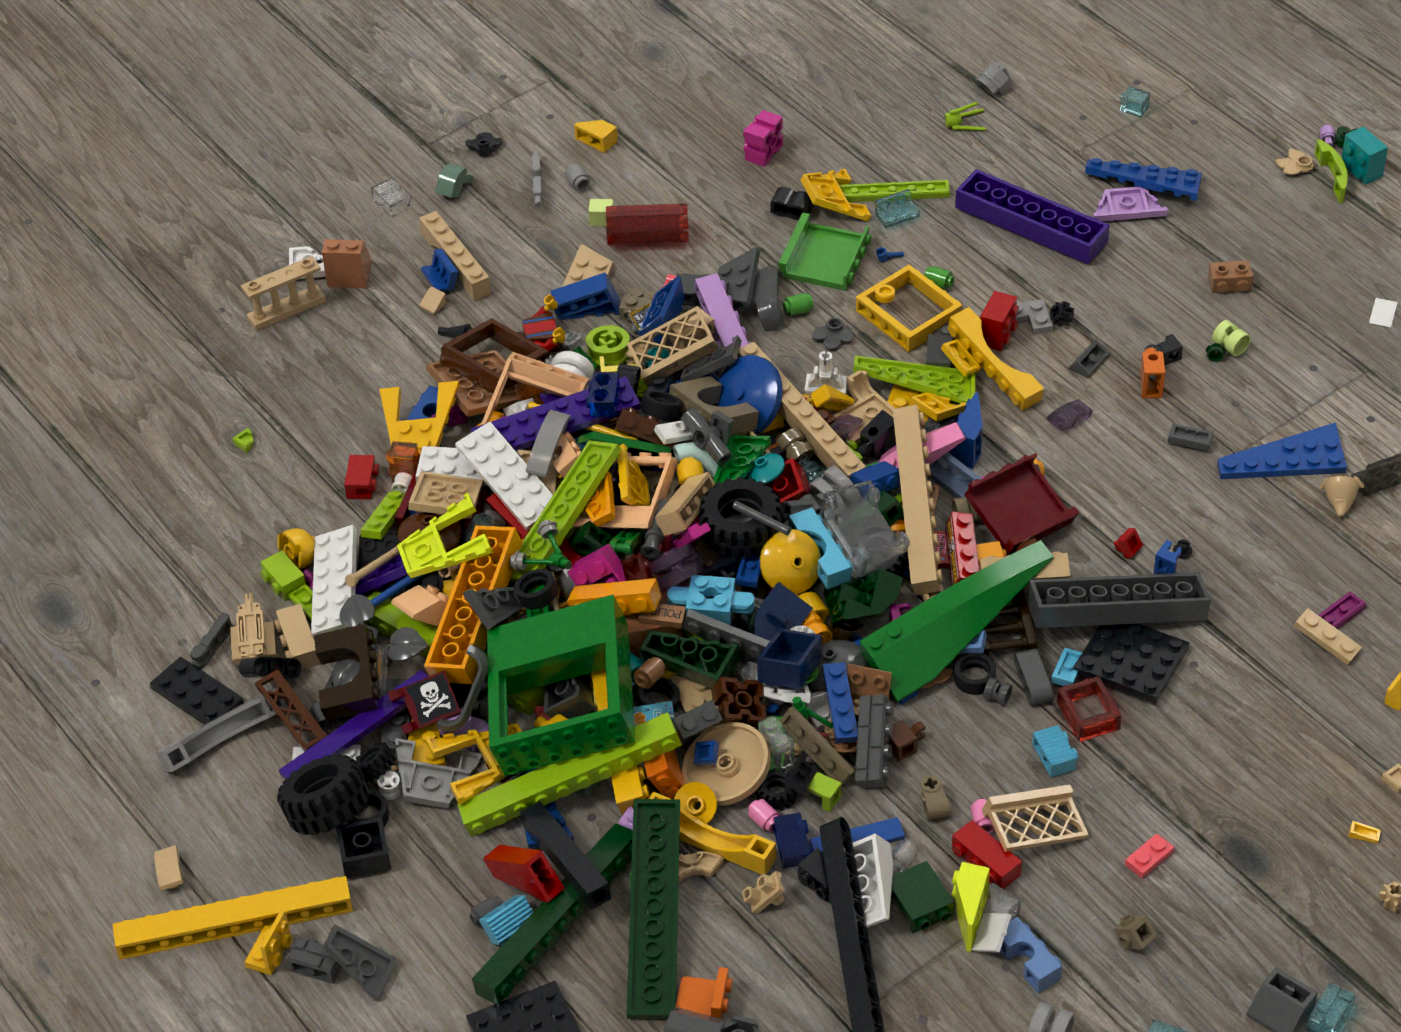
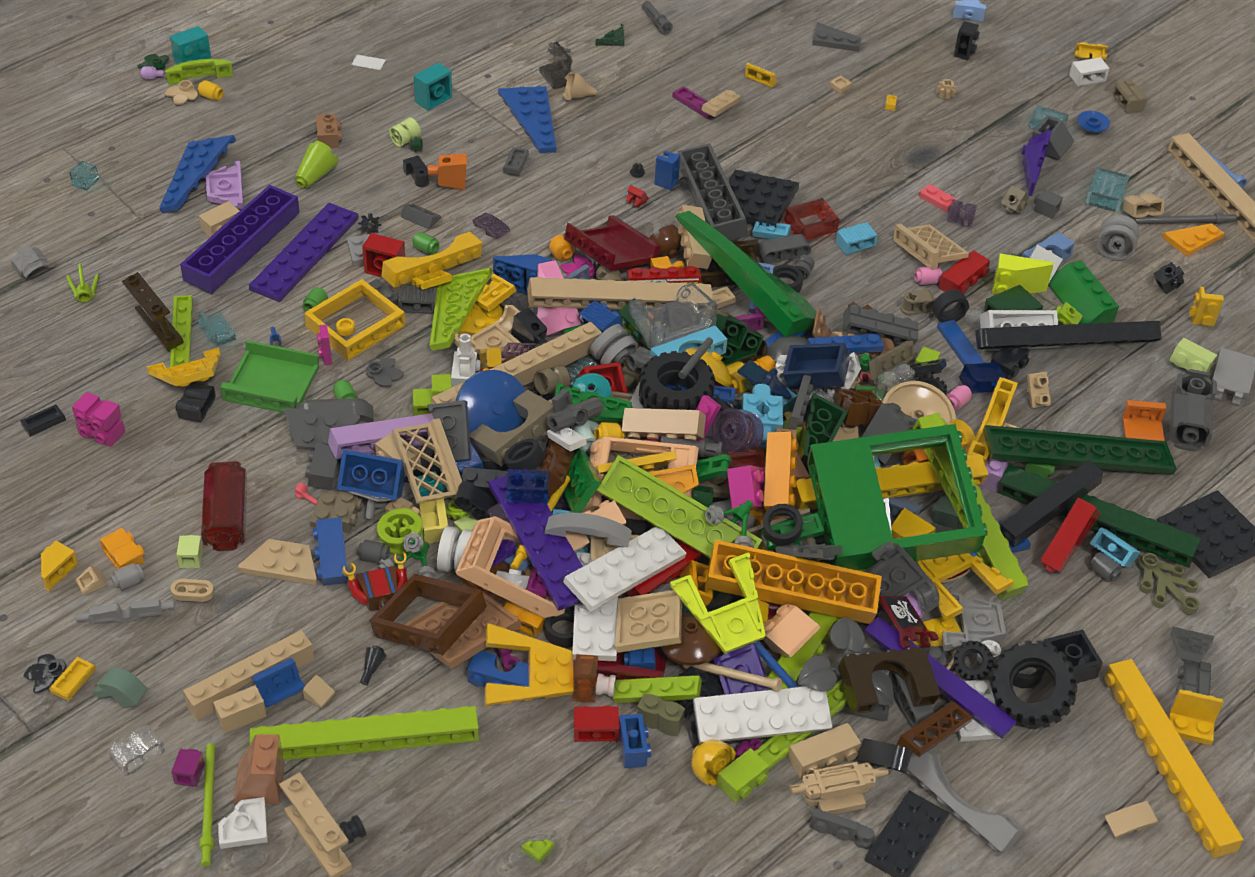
camera: 100 degrees left, 0 degrees up
(286, 323) = (353, 828): none -> black wheel
(319, 243) = (207, 841): none -> lime bar
(332, 496) = (633, 740): none -> blue brick
(359, 514) = (661, 714): none -> olive brick
(367, 227) = (188, 767): none -> magenta brick
(380, 327) = (374, 733): none -> lime brick
(418, 249) = (239, 709): none -> tan brick
(461, 970) = (1150, 564): none -> olive plant
(472, 157) = (72, 679): none -> yellow plate
(557, 218) = (192, 590): none -> tan plate
(582, 158) = (91, 580): none -> tan slope
(585, 325) = (373, 551): none -> dark grey brick
(608, 171) = (121, 549): none -> light orange brick
(777, 107) = (42, 420): none -> black tile
(784, 360) = (423, 397): none -> lime brick
(859, 279) = (323, 339): none -> dark pink plate
(895, 945) = (1067, 314): none -> lime brick
(913, 167) = (152, 311): none -> dark brown fence
(914, 821) = (946, 299): none -> black tyre
(945, 983) = (1084, 292): none -> green slope
(1024, 271) = (303, 252): none -> dark purple plate
(1032, 359) = (426, 243): none -> bright green brick
(1068, 197) = (217, 217): none -> tan brick
(1107, 868) = (956, 210): none -> clear purple wheel
(1135, 975) = (1048, 203): none -> dark grey brick
(1161, 265) = (315, 164): none -> lime cone
(1228, 975) = (1033, 159): none -> dark purple wedge
(1298, 182) = (210, 90): none -> yellow brick
(1316, 356) = (433, 86): none -> teal brick

